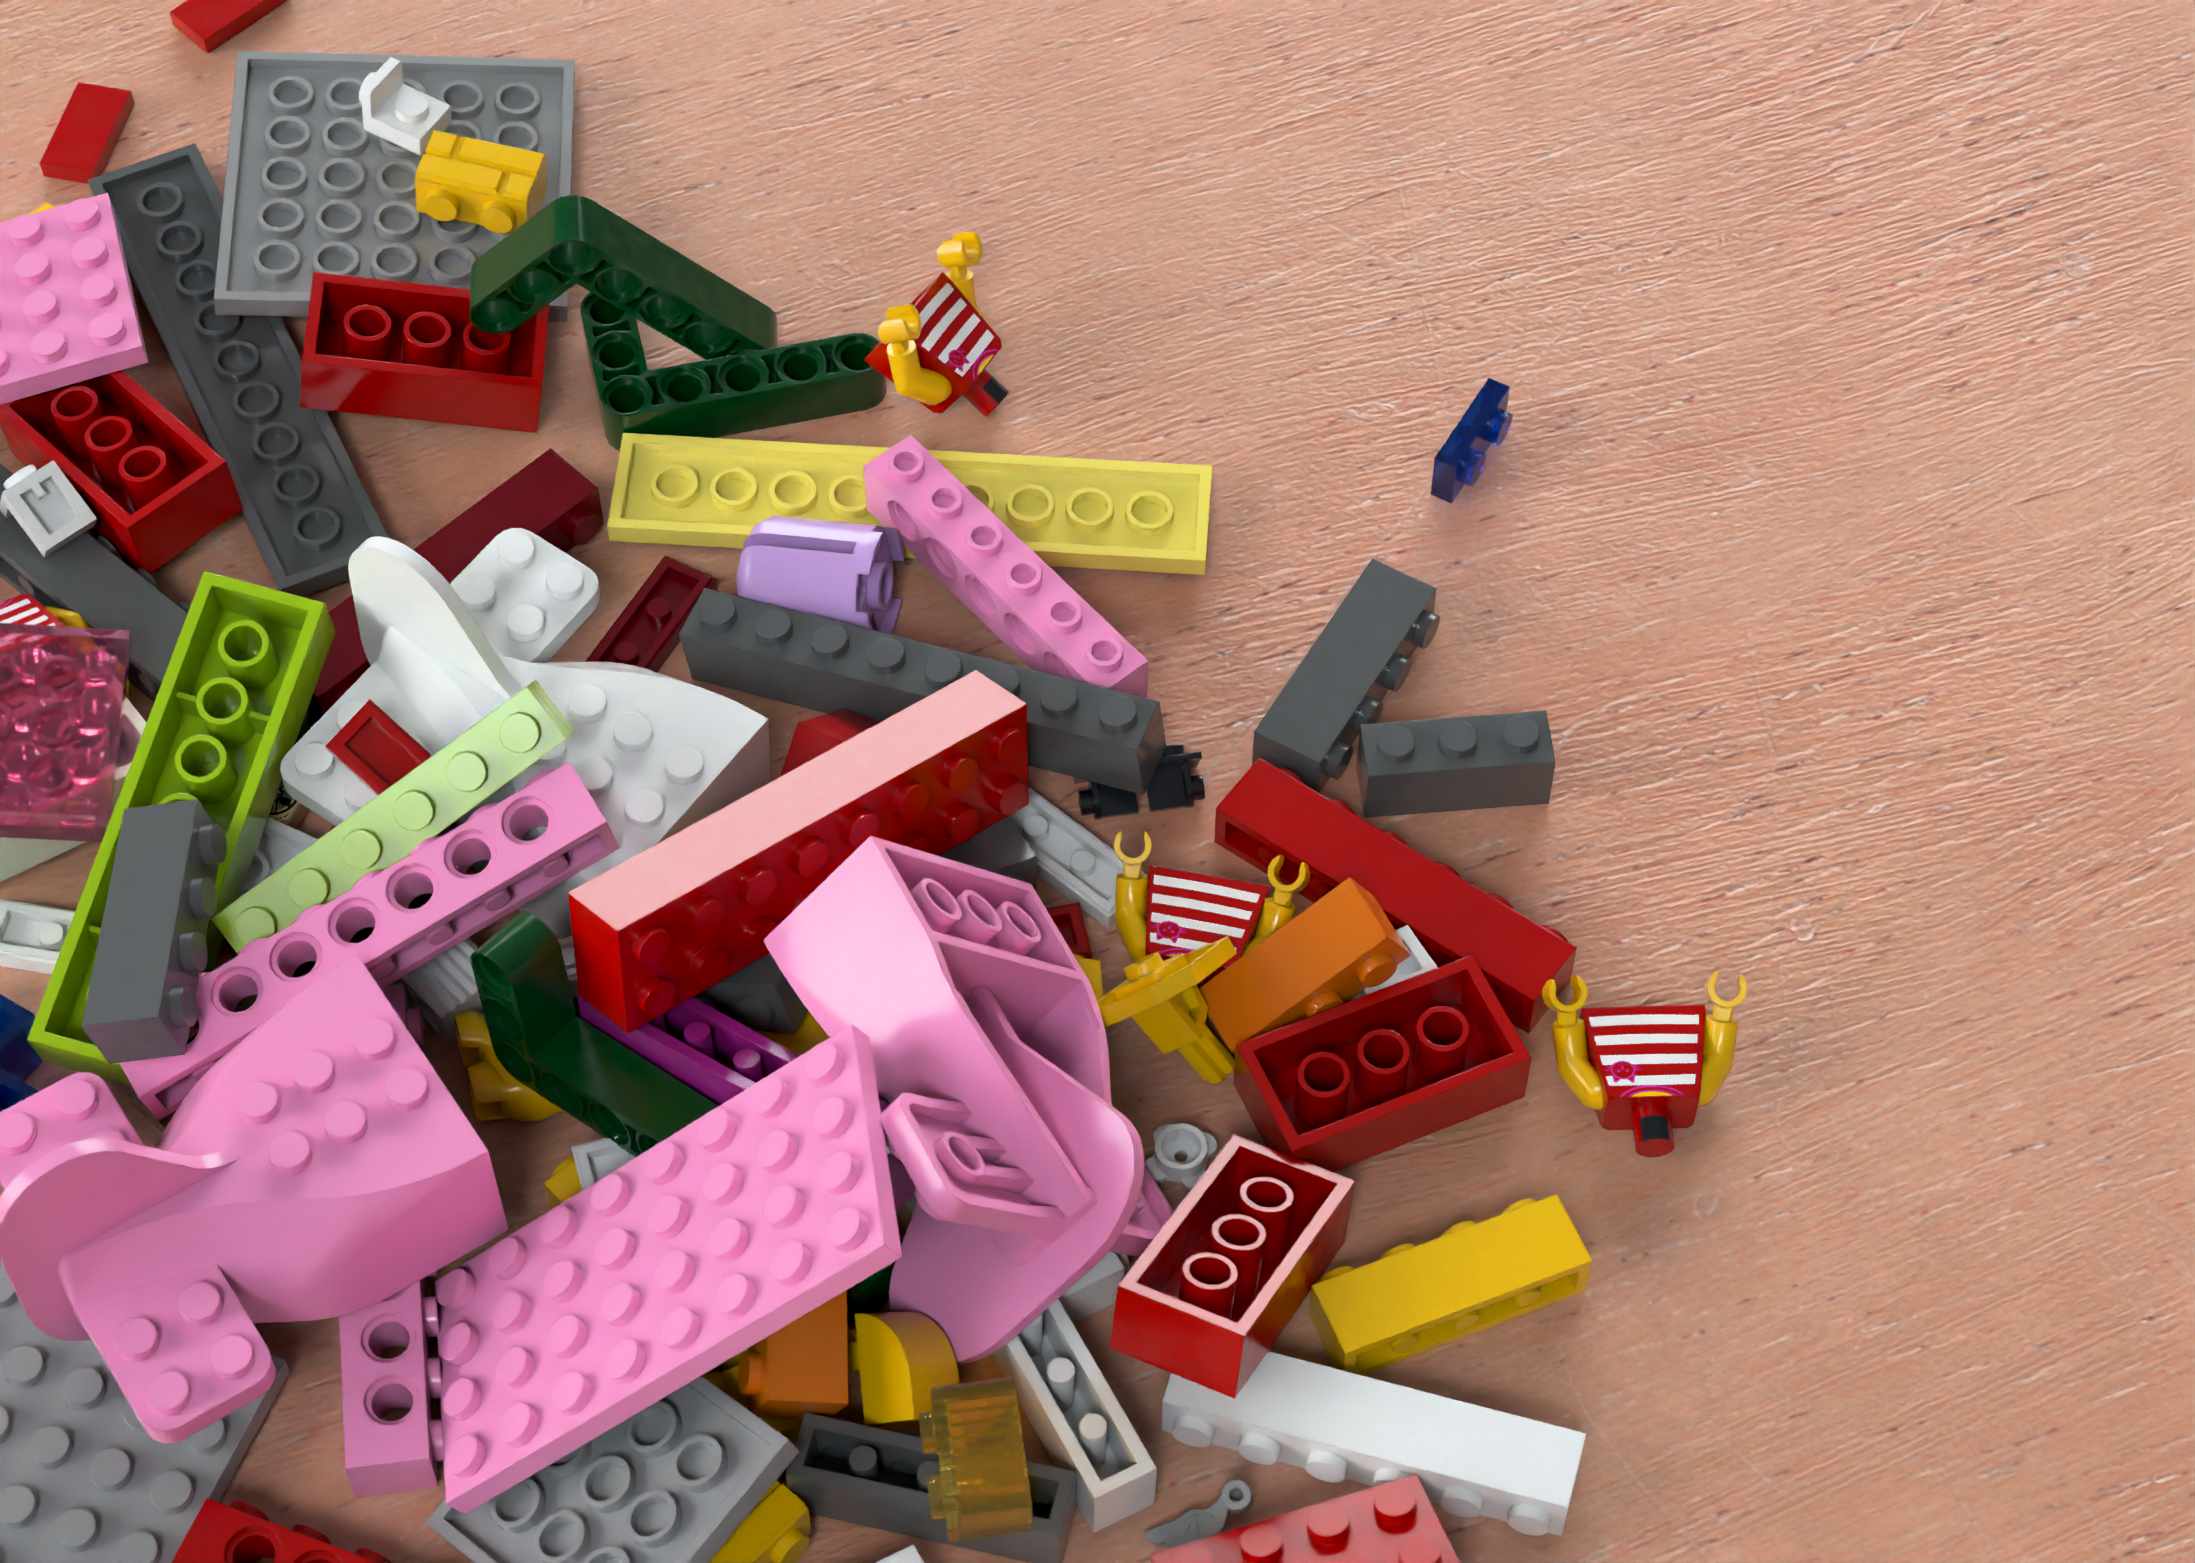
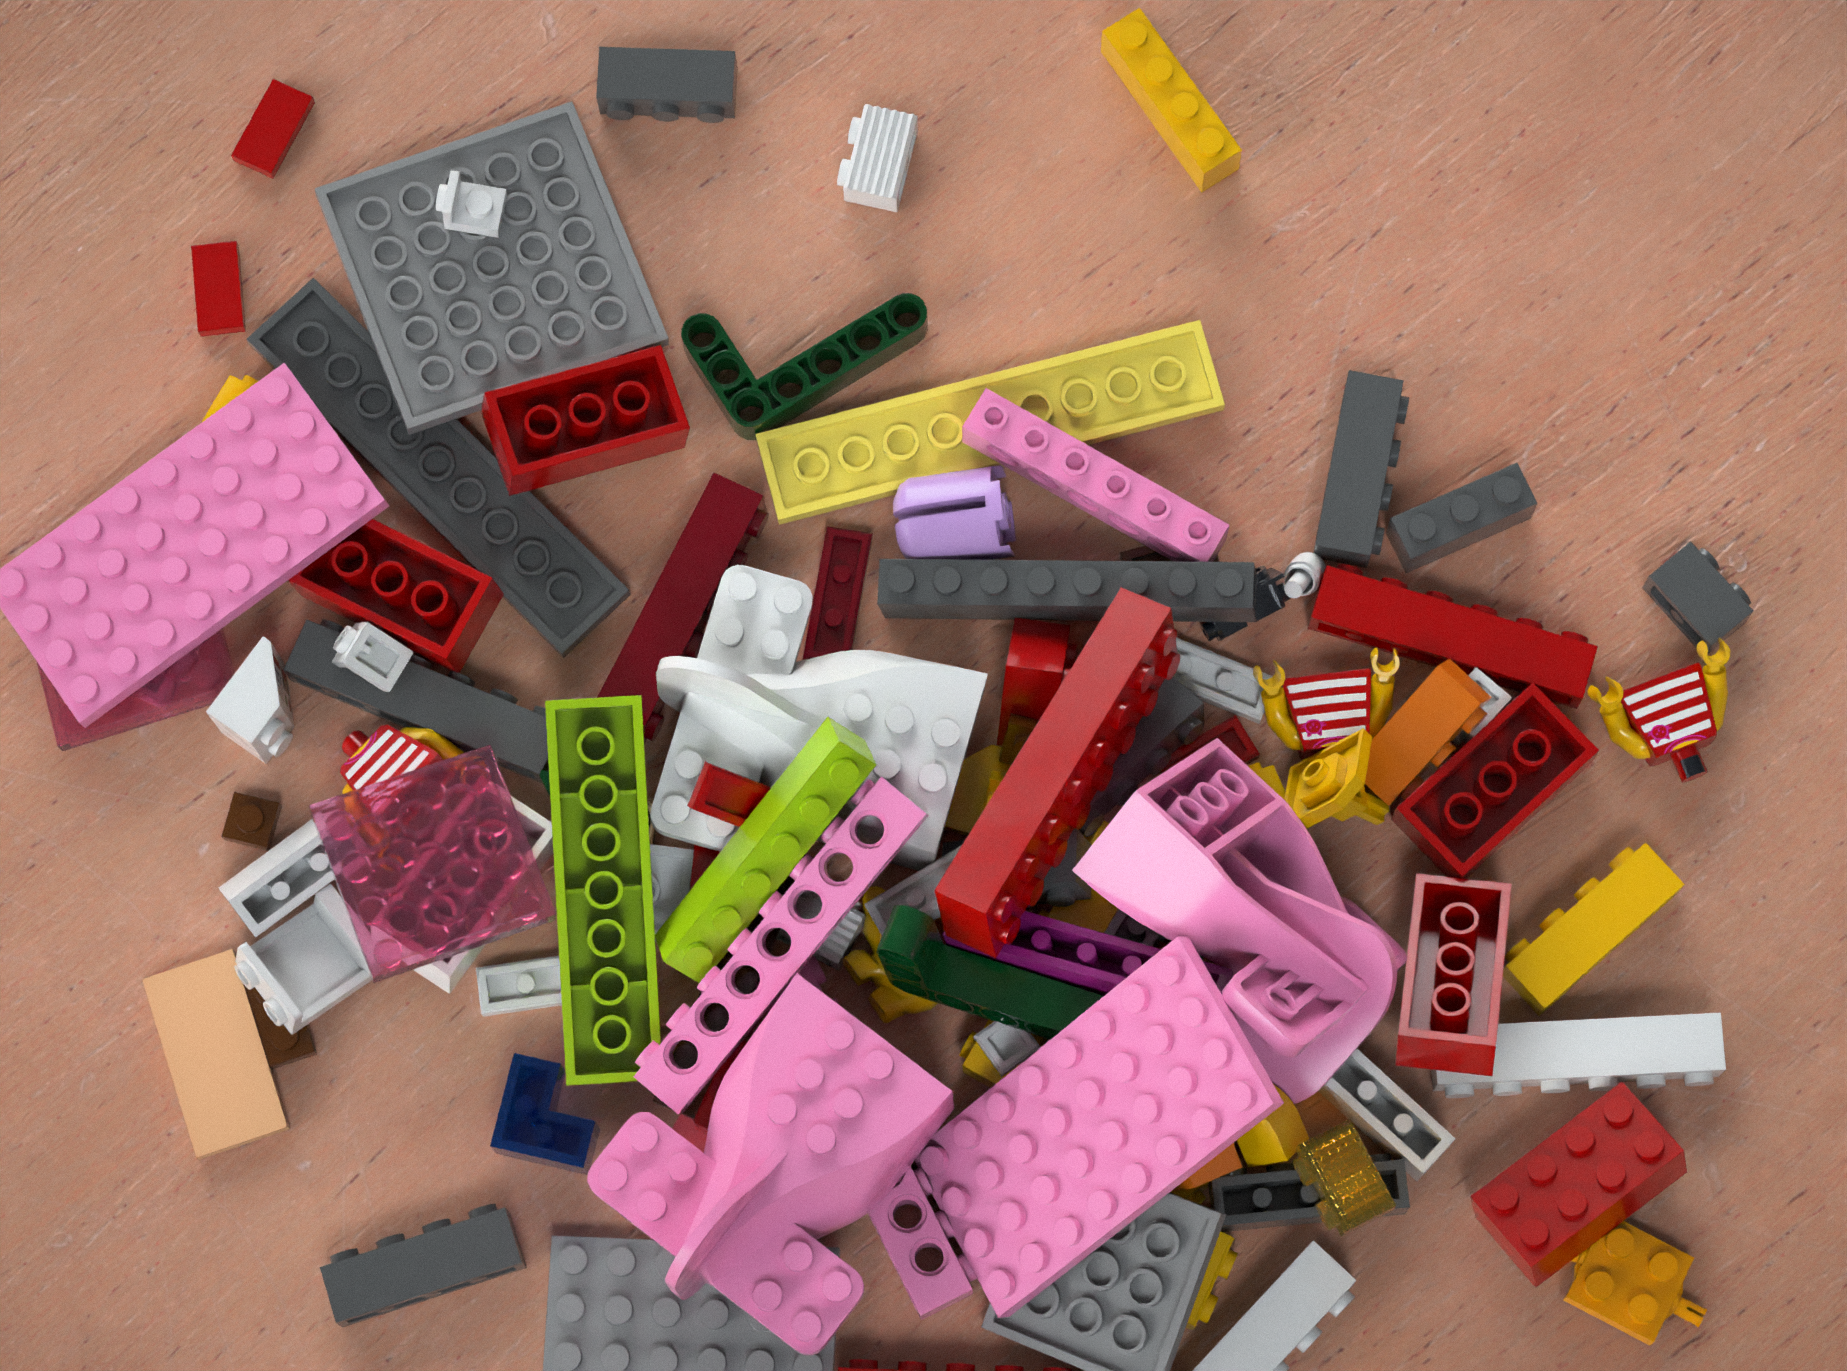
camera: 15 degrees left, 20 degrees up
(154, 932) = (641, 994): dark grey brick -> none
(479, 182) = (563, 258): yellow brick -> none
(605, 254) = (716, 321): dark green beam -> none
(691, 72) = (667, 83): none -> dark grey brick
(901, 207) = (879, 158): none -> white brick
(940, 339) = (962, 281): torso -> none
(1180, 1139) = (1385, 878): white plate -> none
(1198, 1524) = (1486, 1152): light grey piece -> none
(1224, 769) = (1304, 575): none -> white cylinder
(1271, 241) = (1170, 100): none -> yellow brick
(1464, 451) = (1385, 215): clear blue plate -> none
(1729, 929) = (1698, 597): none -> dark grey brick

